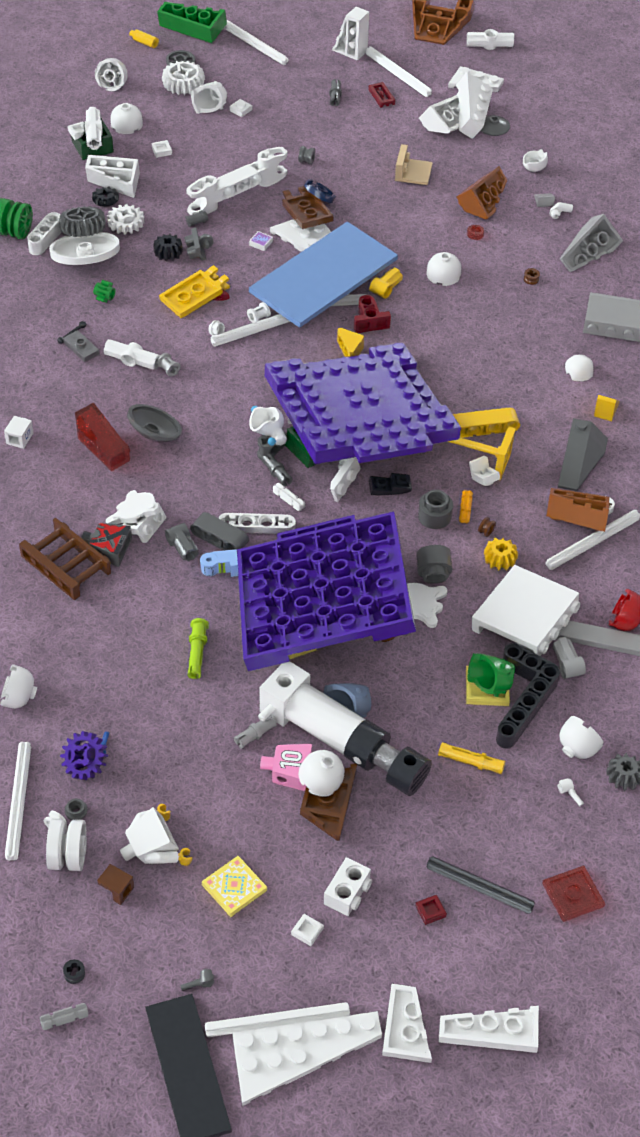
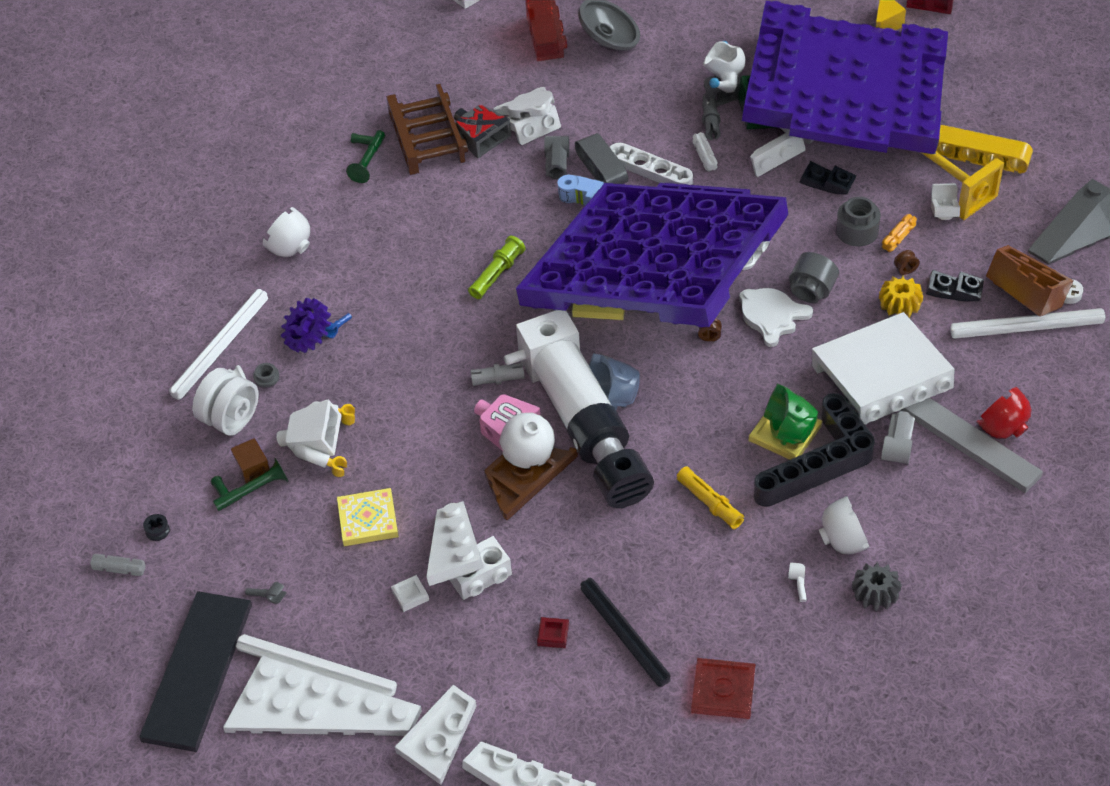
camera: 35 degrees right, 0 degrees up
(35, 613) = (359, 172): none -> dark green piece
(115, 921) = (227, 498): none -> dark green piece
(323, 877) = (453, 545): none -> white wing
(533, 531) = (963, 288): none -> black slope

